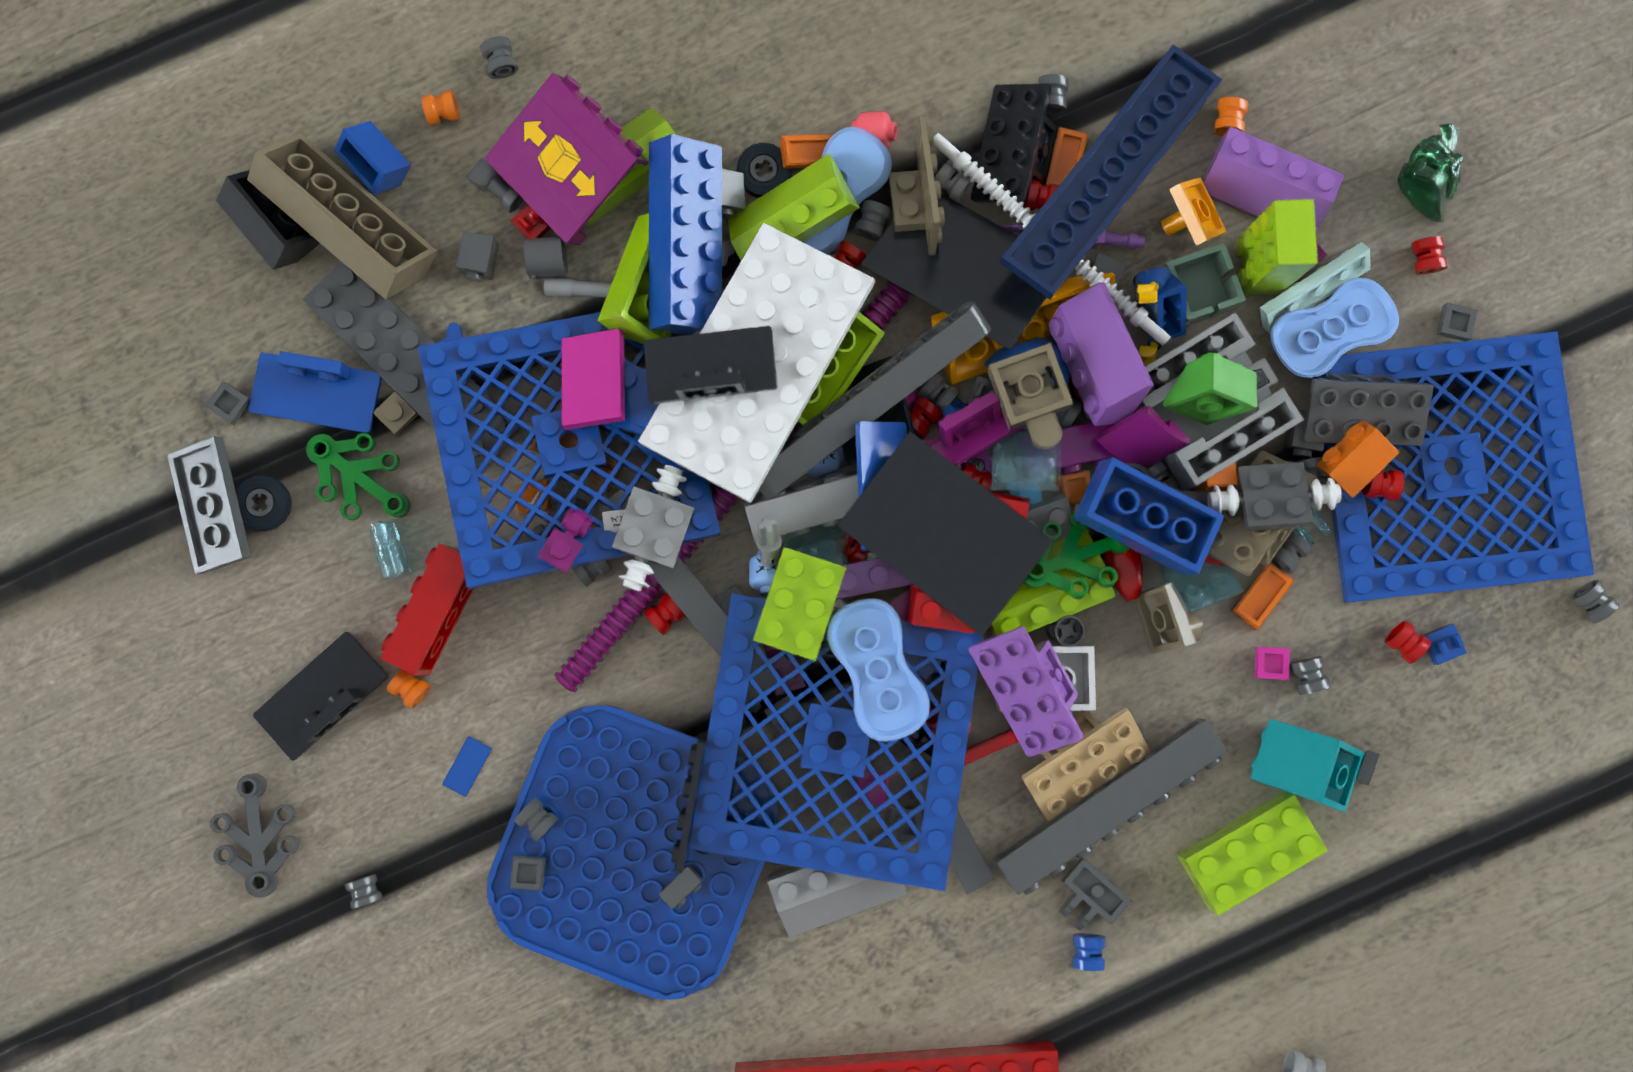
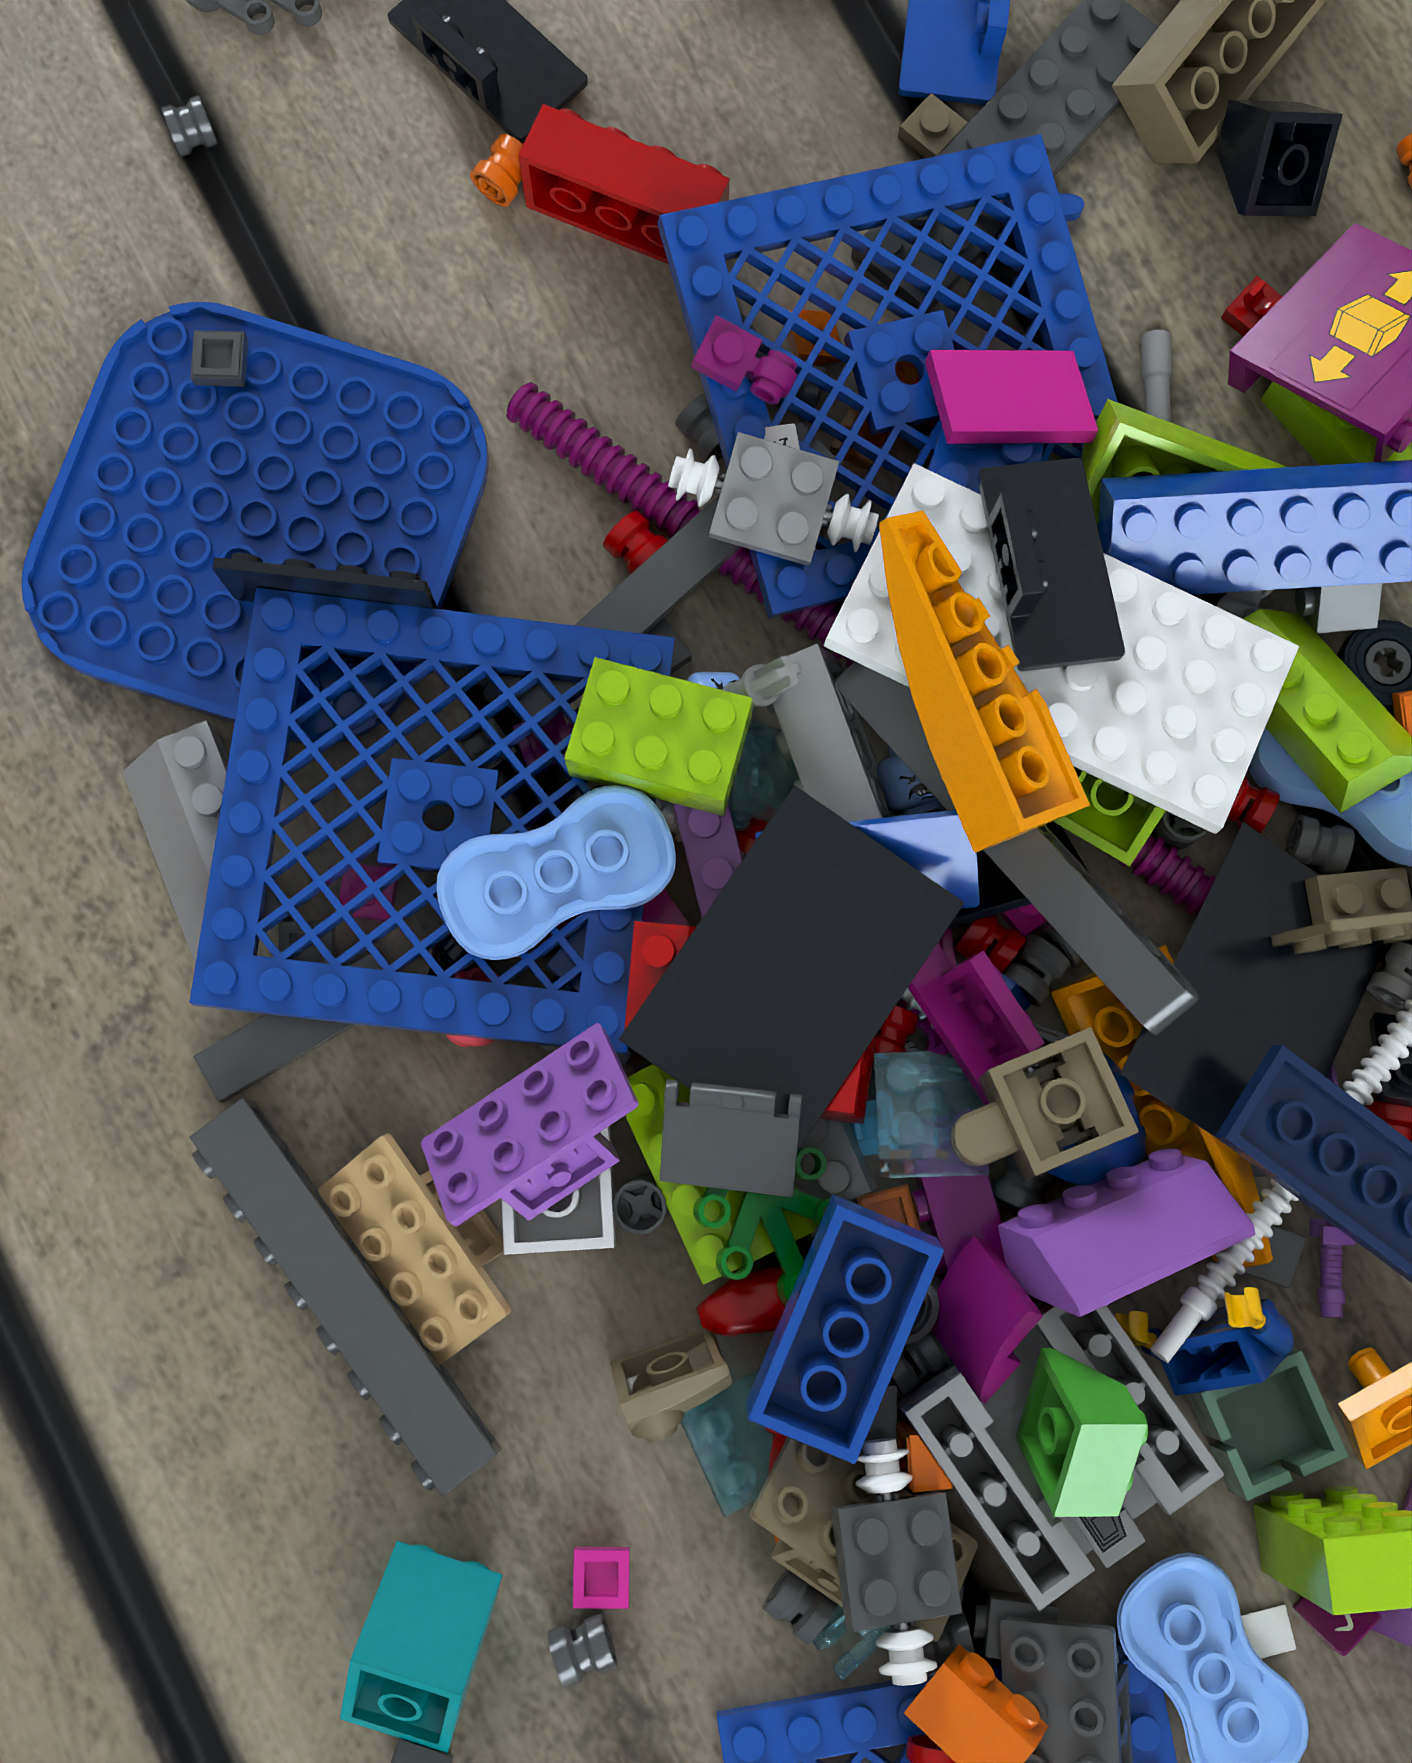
camera: 85 degrees right, 5 degrees down
(353, 473) = (832, 72): green plant -> none
(372, 157) = (1338, 57): blue brick -> none
(389, 549) = (718, 129): clear light blue hinge -> none
(434, 201) = (1277, 155): none -> black slope
(467, 766) = (386, 268): blue sticker -> none
(477, 256) = (1194, 228): dark grey brick -> none
(488, 179) = (1316, 239): dark grey leg -> none
(537, 819) = (301, 361): dark grey wheel -> none
(545, 257) = (1202, 328): dark grey piece -> none
(680, 887) = (202, 592): dark grey piece -> none
(804, 415) = (979, 719): none -> light orange wedge
(990, 746) = (436, 1074): red tile -> none
(1041, 575) = (730, 1139): none -> dark grey piece
(1088, 952) = (97, 1266): blue wheel -> none
(1096, 891) = (200, 1274): dark grey hinge -> none
(1252, 853) = (267, 1551): lime brick -> none
(1262, 596) = (720, 1557): orange tile -> none
(1318, 285) = (1288, 1643): light aqua plate -> none

